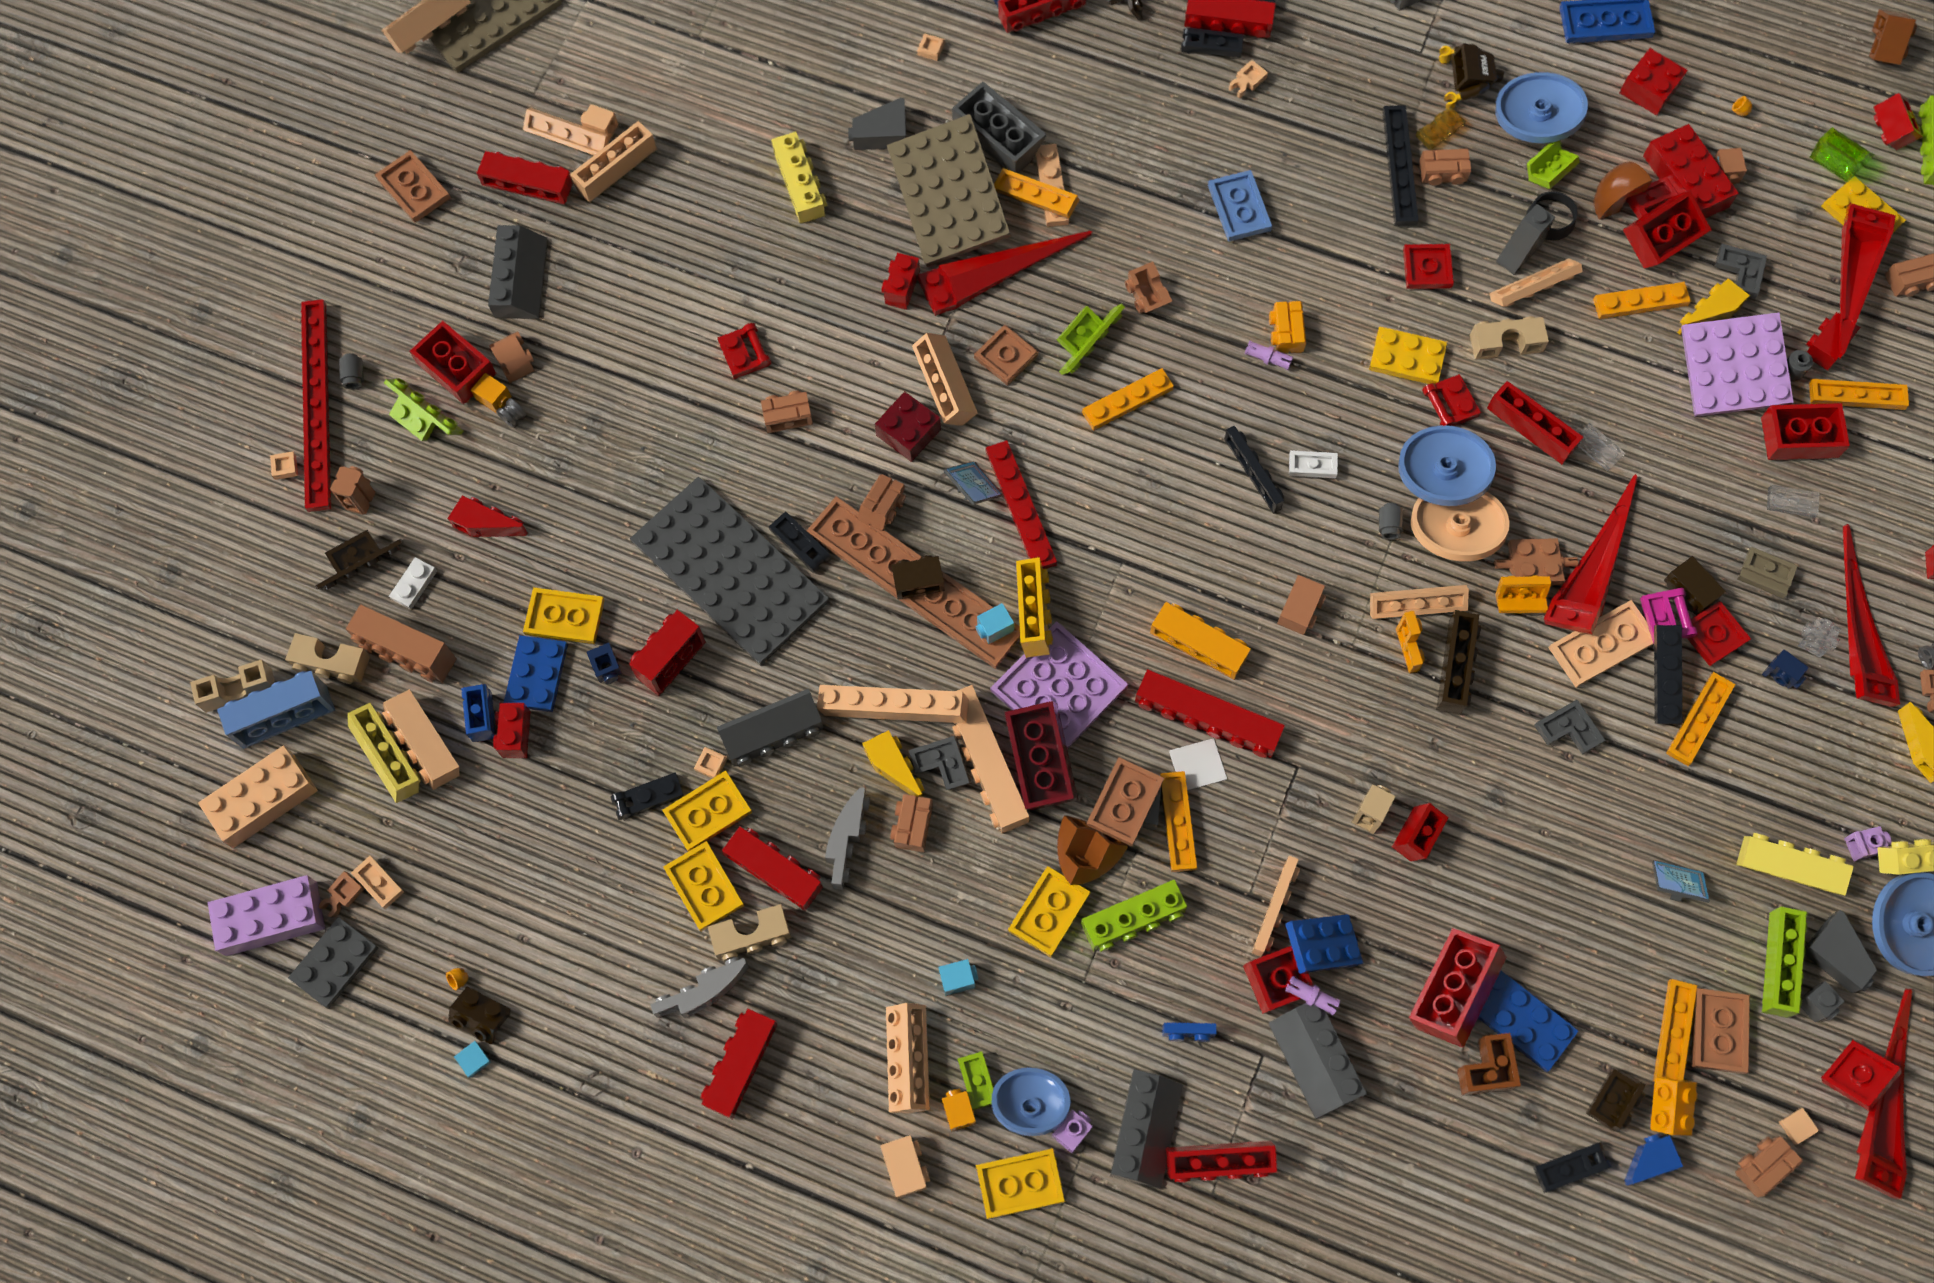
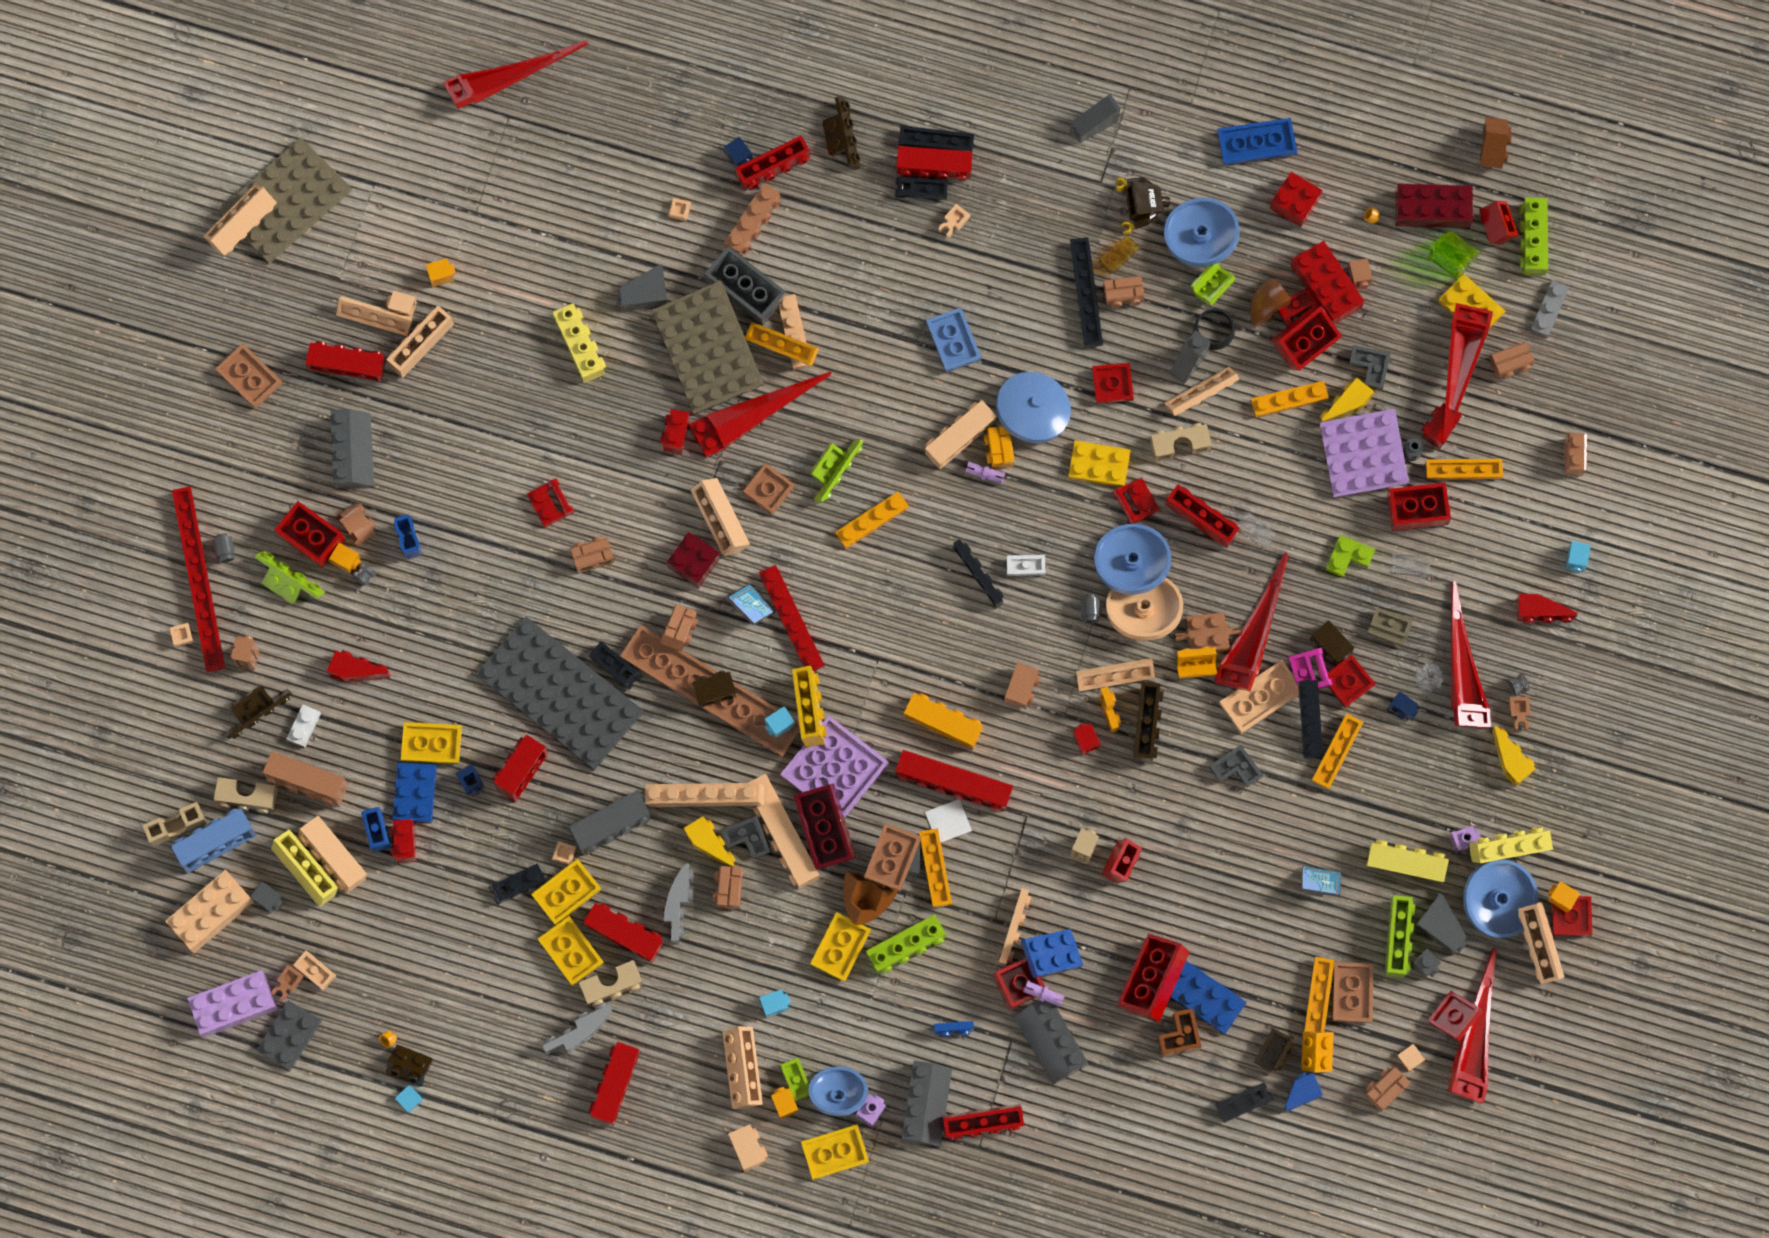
camera: 10 degrees left, 5 degrees up
(332, 786) = (267, 897): none -> dark grey brick
(568, 373) = (407, 536): none -> blue brick
(648, 91) = (440, 272): none -> light orange brick
(1016, 58) = (753, 219): none -> nougat brick
(1147, 288) = (881, 423): nougat cylinder -> none
(1242, 308) = (960, 434): none -> light nougat brick
(1331, 284) = (1033, 407): none -> medium blue dish
(1379, 676) = (1086, 738): none -> red brick
(1712, 479) = (1346, 551): none -> lime plate
(1818, 99) = (1433, 205): none -> dark red brick

